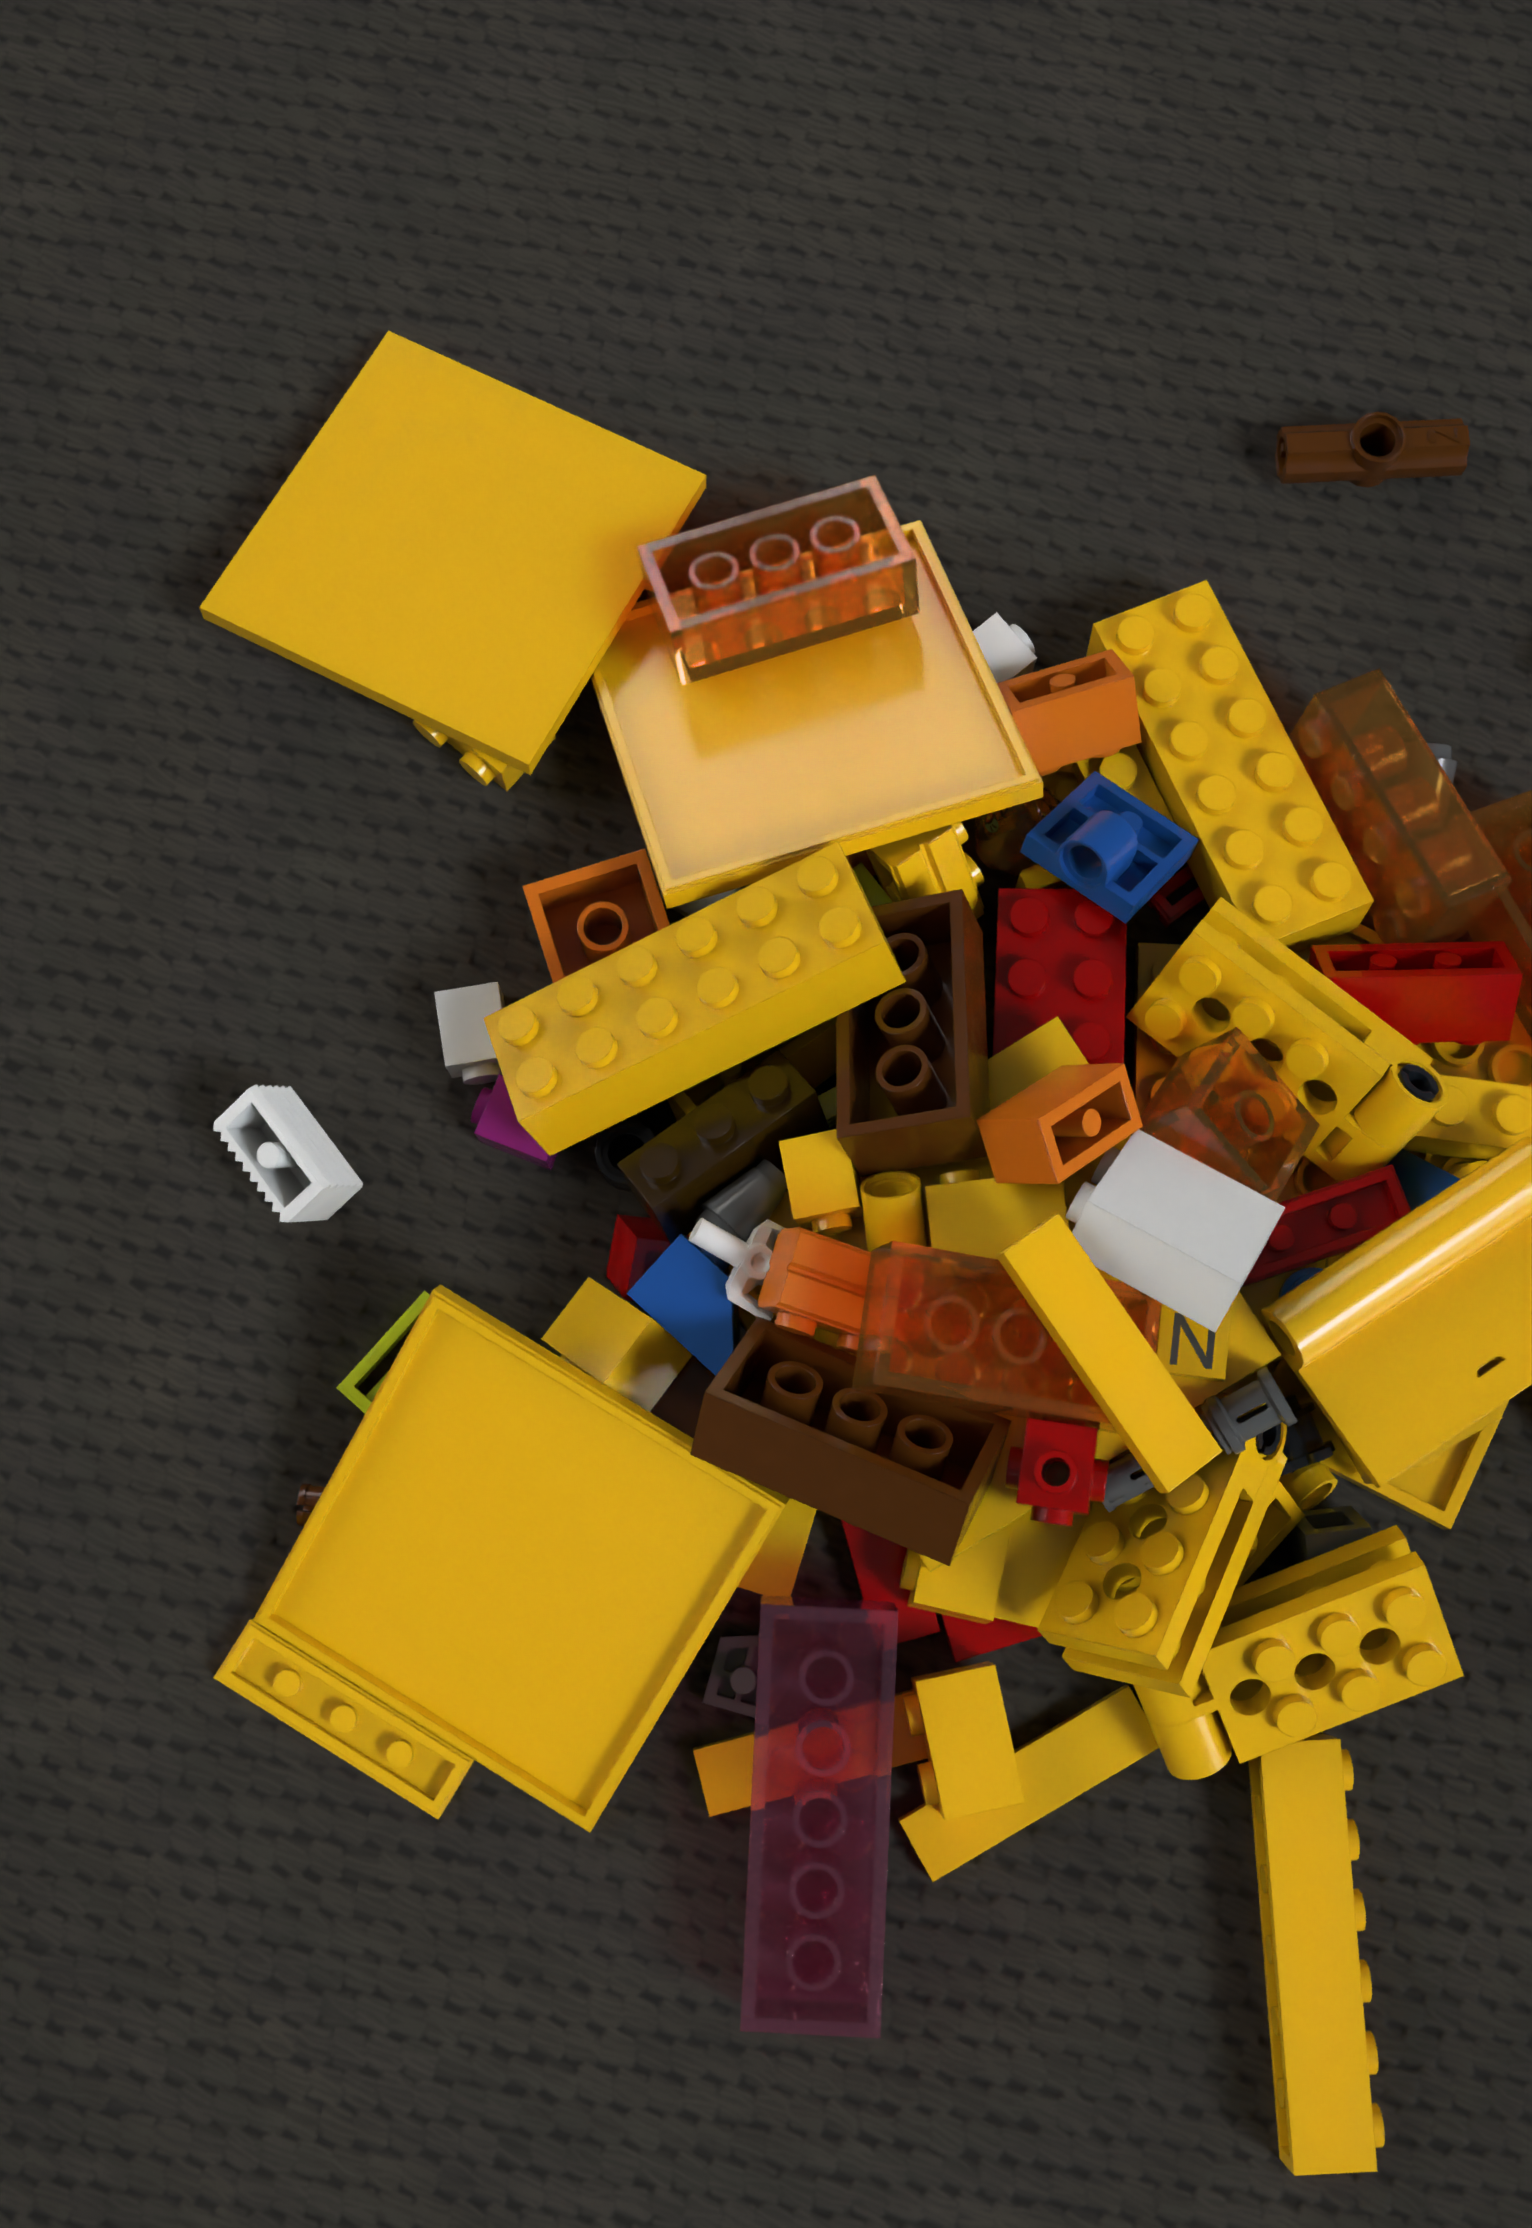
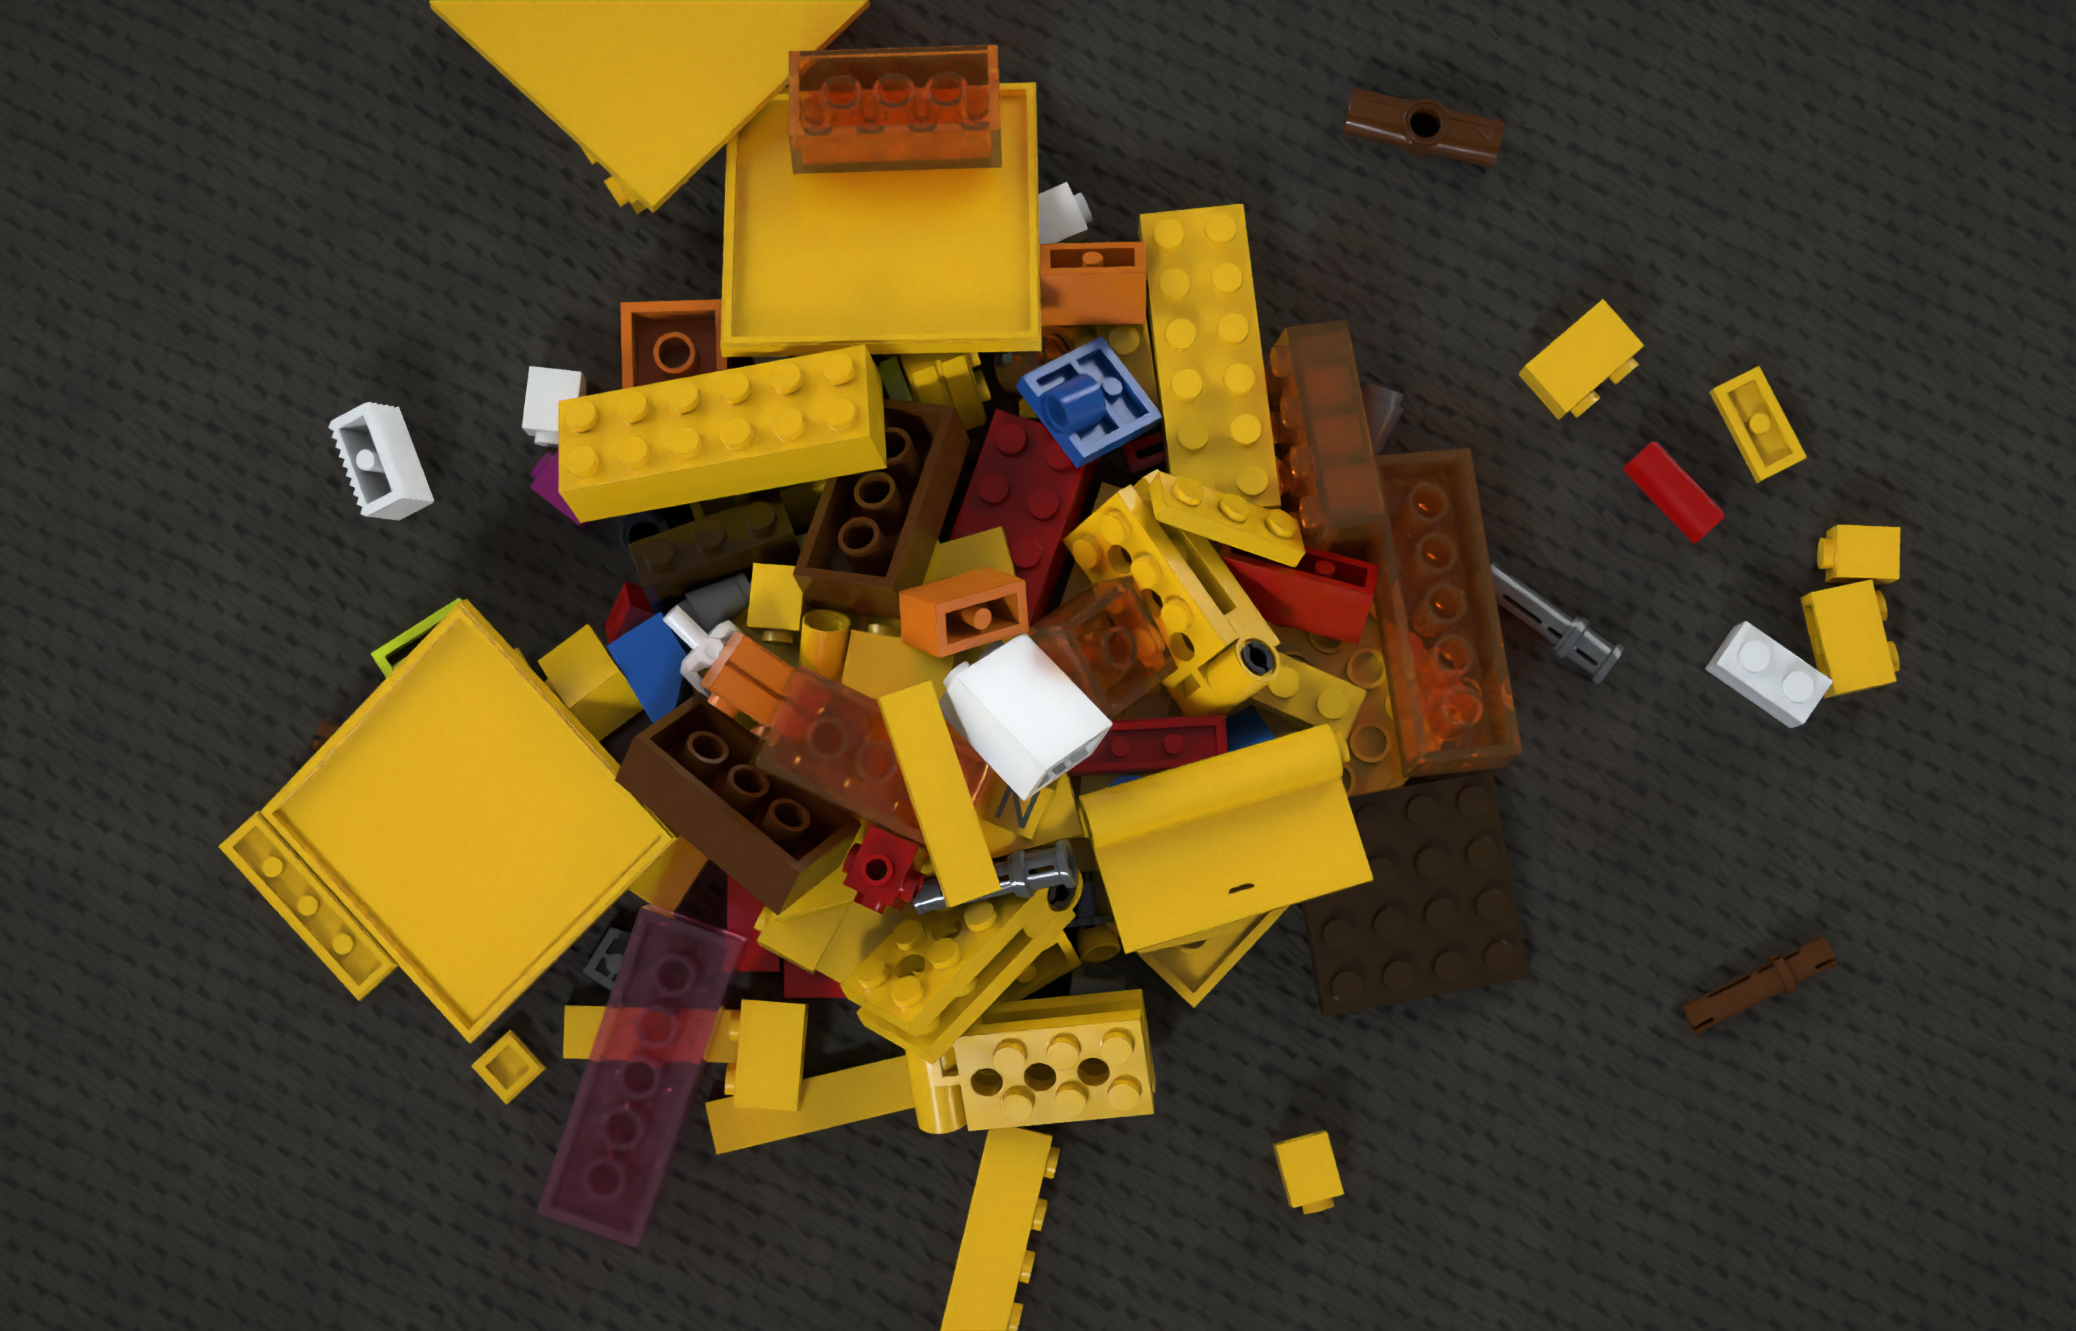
camera: 15 degrees right, 5 degrees up
(645, 1847) = (509, 1066): none -> yellow tile
(1324, 930) = (1226, 519): none -> yellow plate

